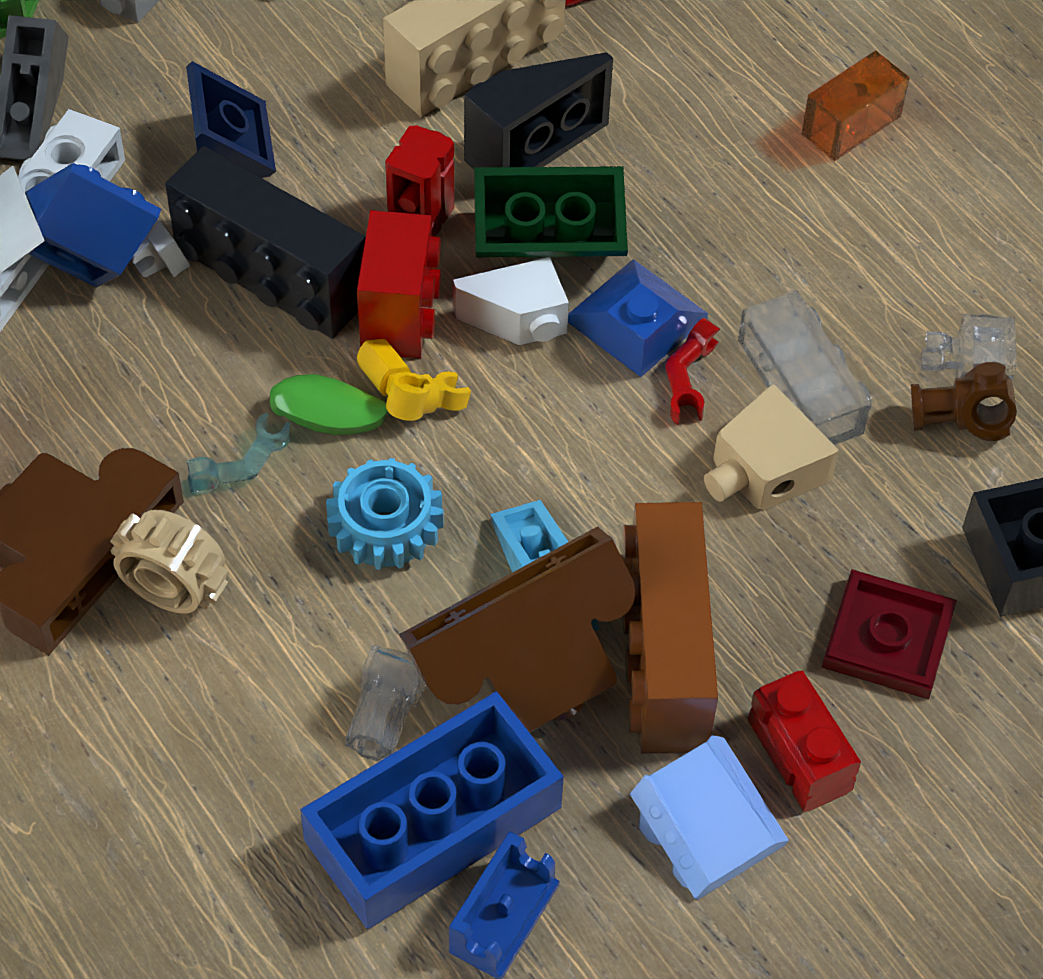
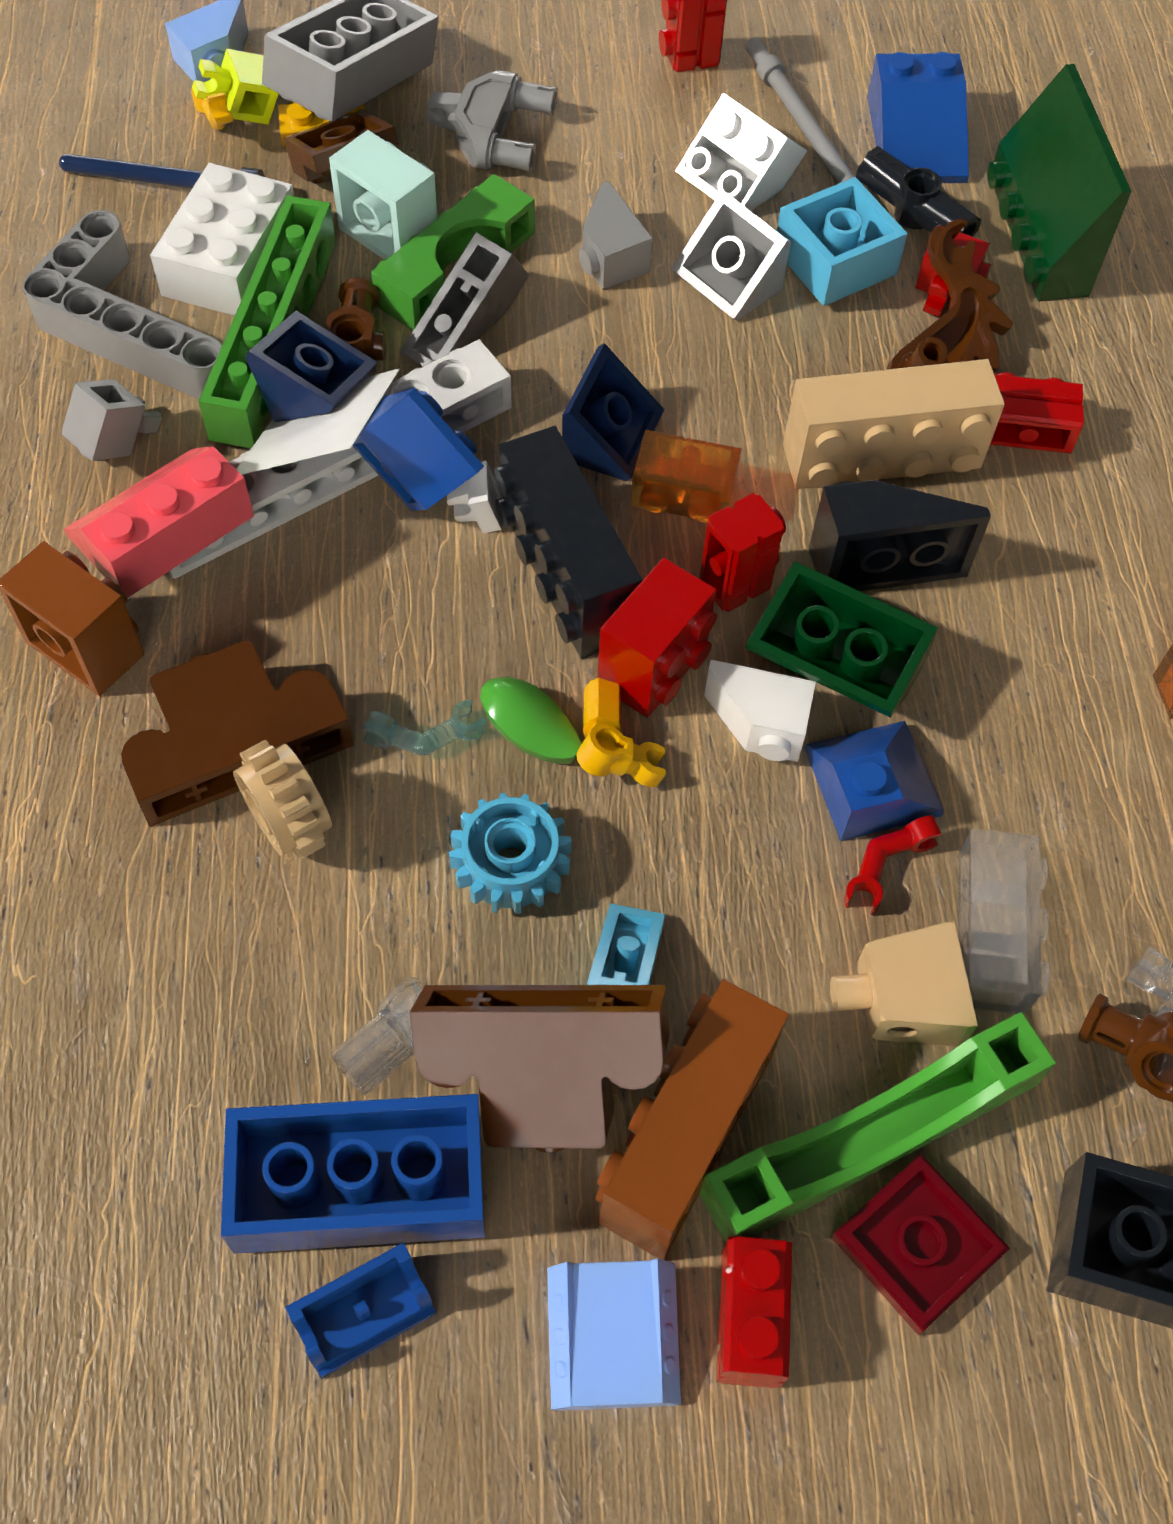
camera: 30 degrees right, 5 degrees up
(326, 147) = (684, 475): none -> clear orange brick
(781, 614) = (817, 1163): none -> bright green arch

